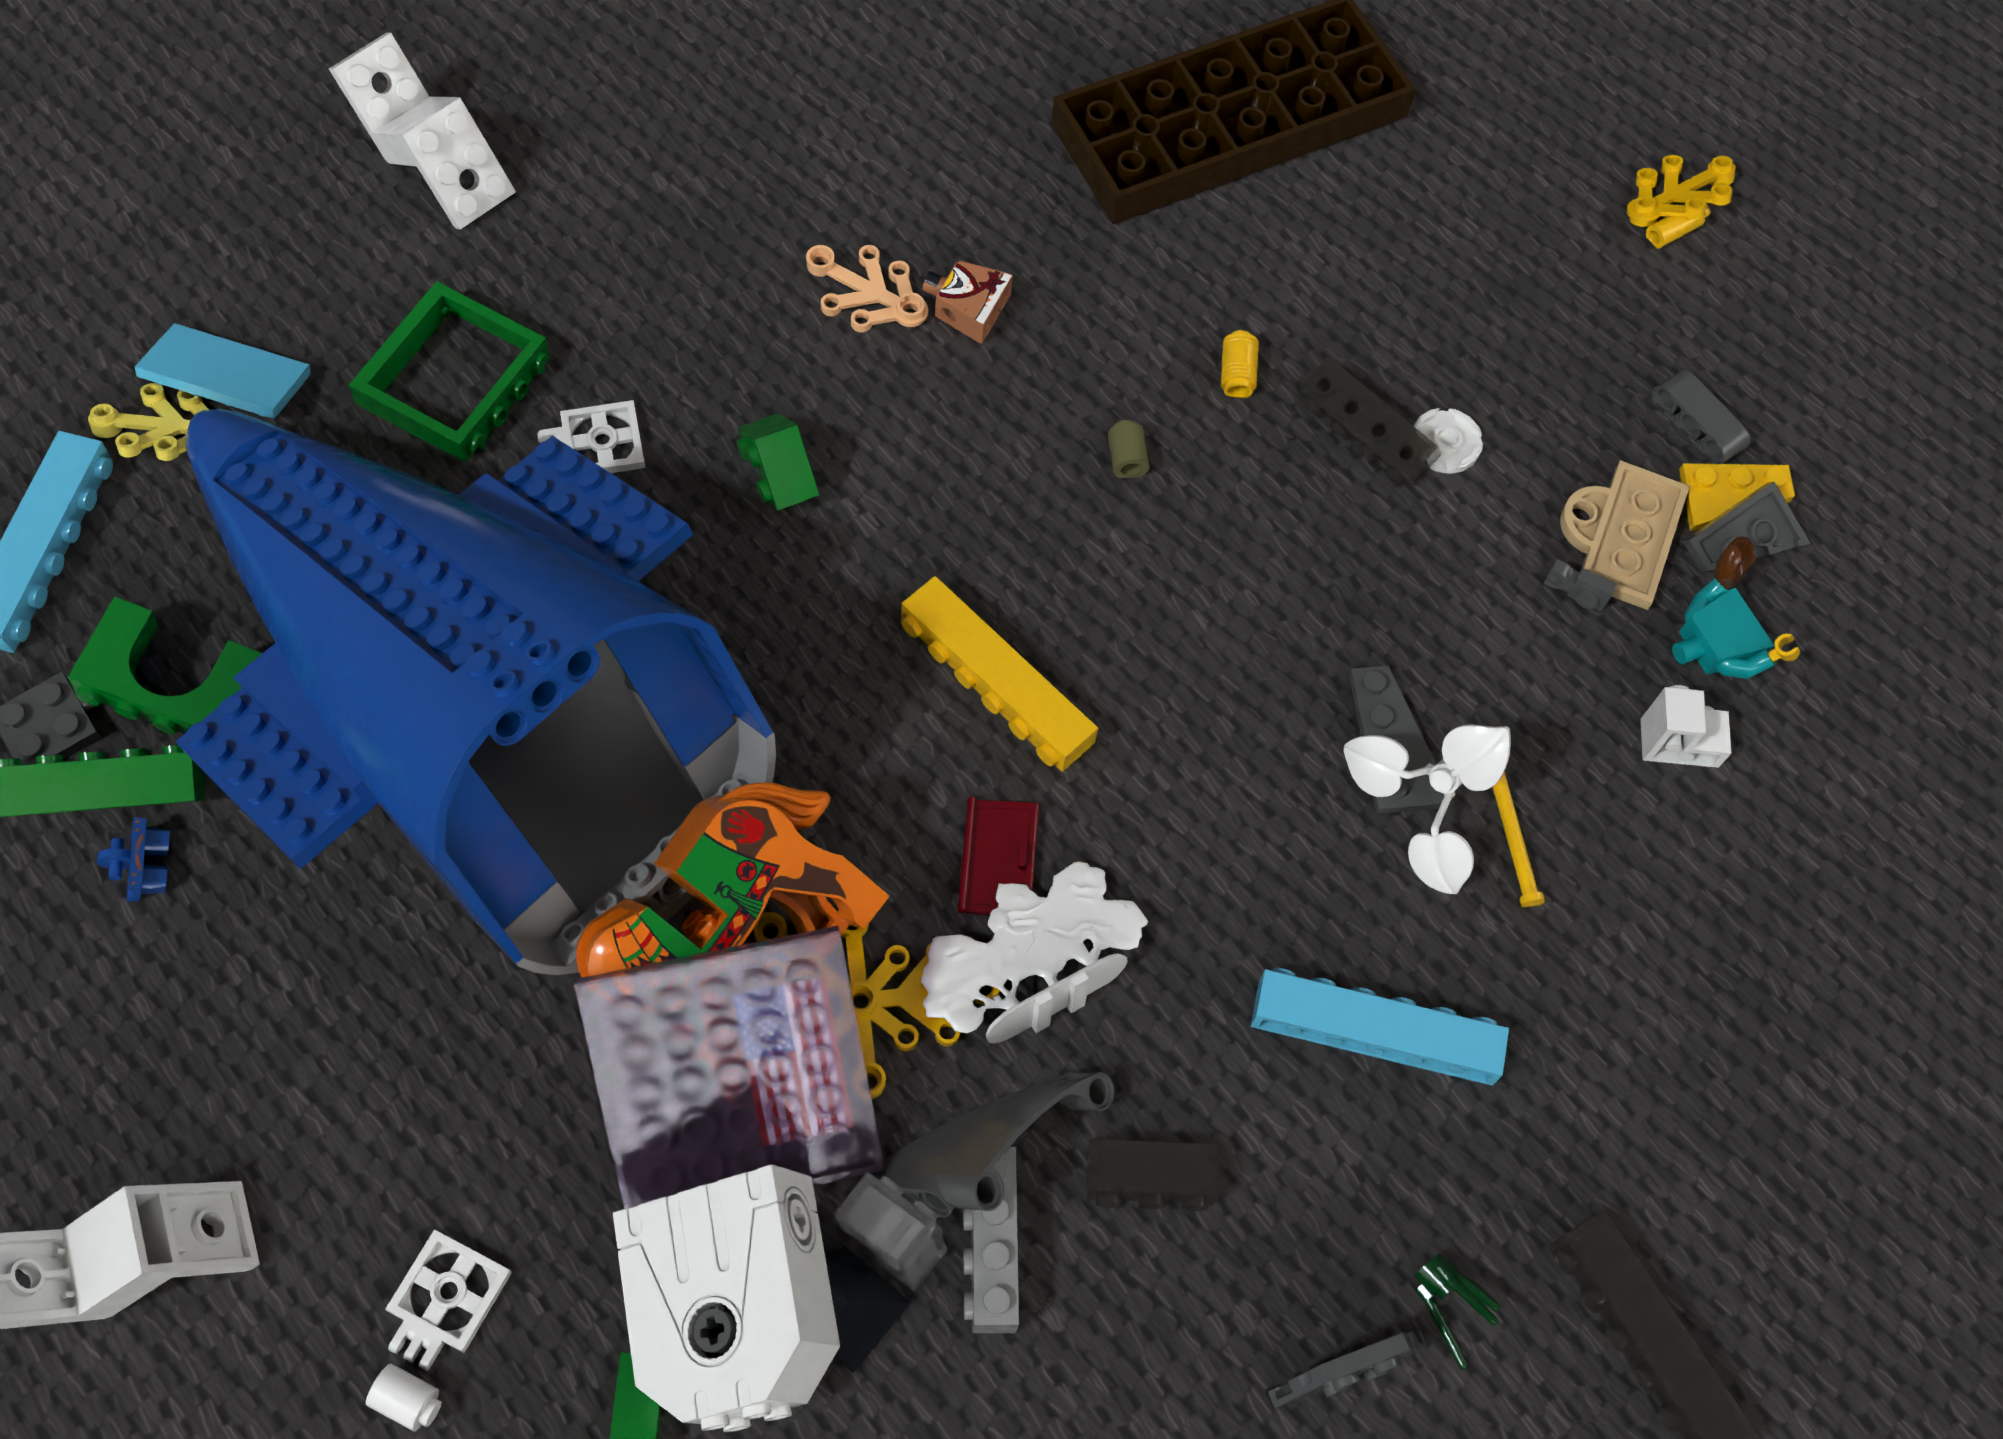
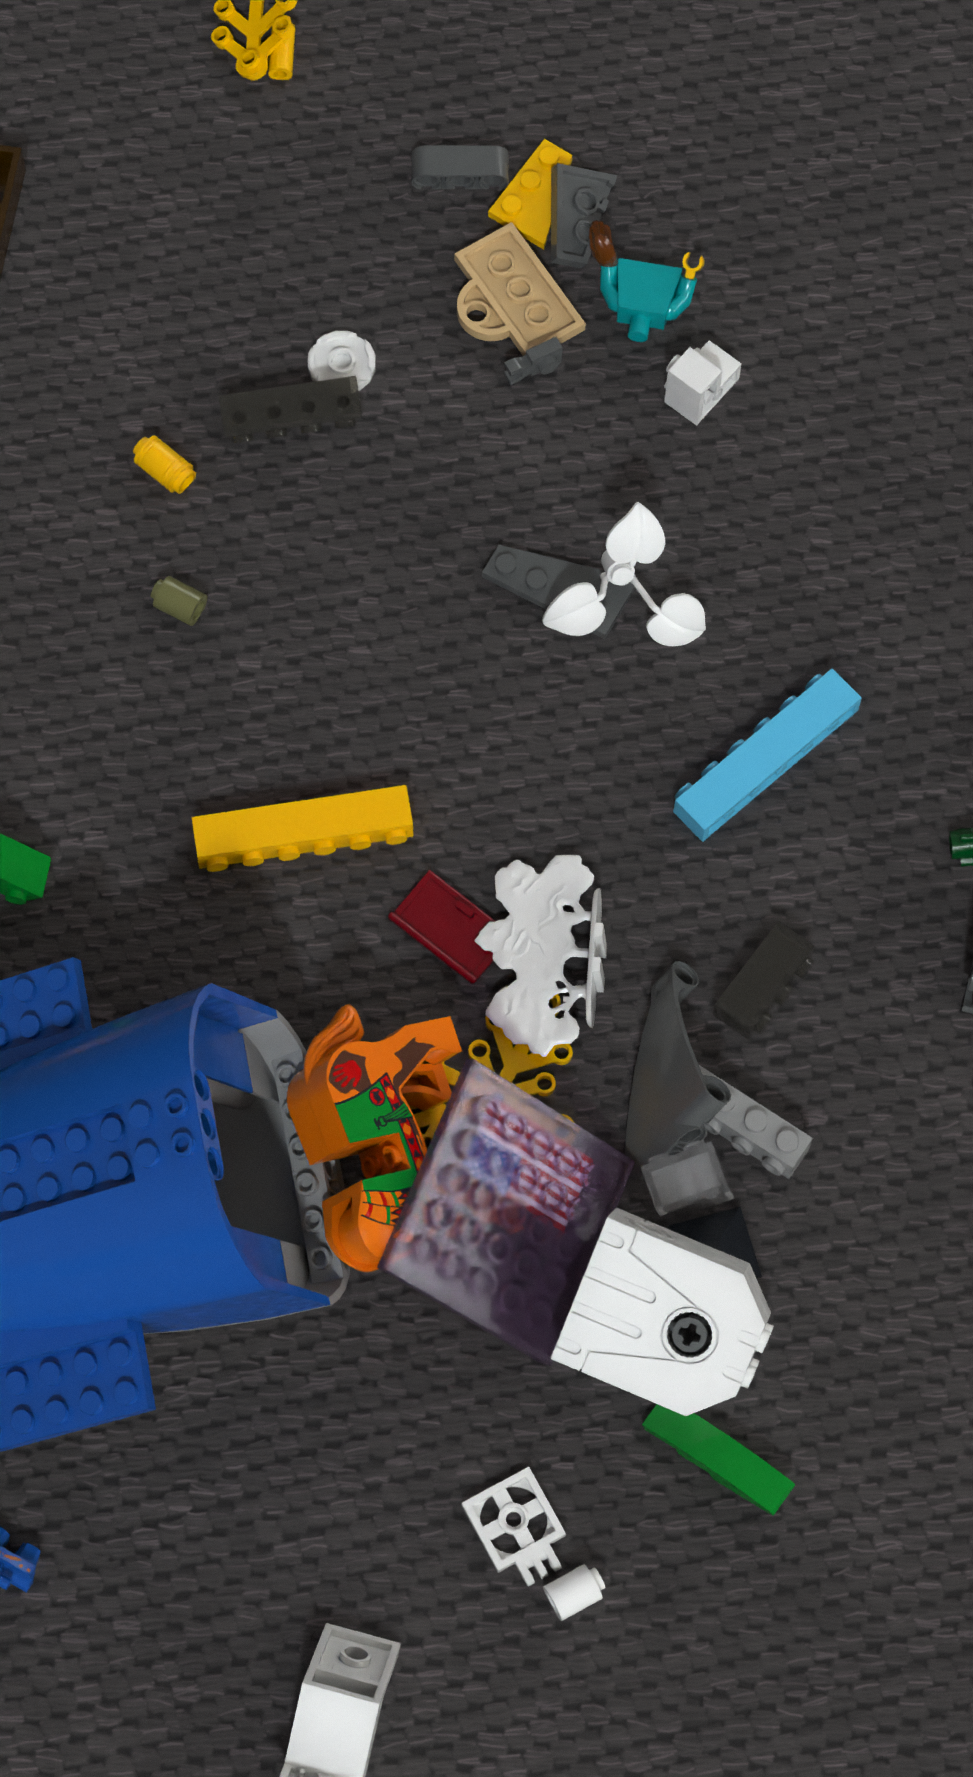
camera: 50 degrees left, 5 degrees up
(1517, 847) = (688, 556): yellow bar -> none

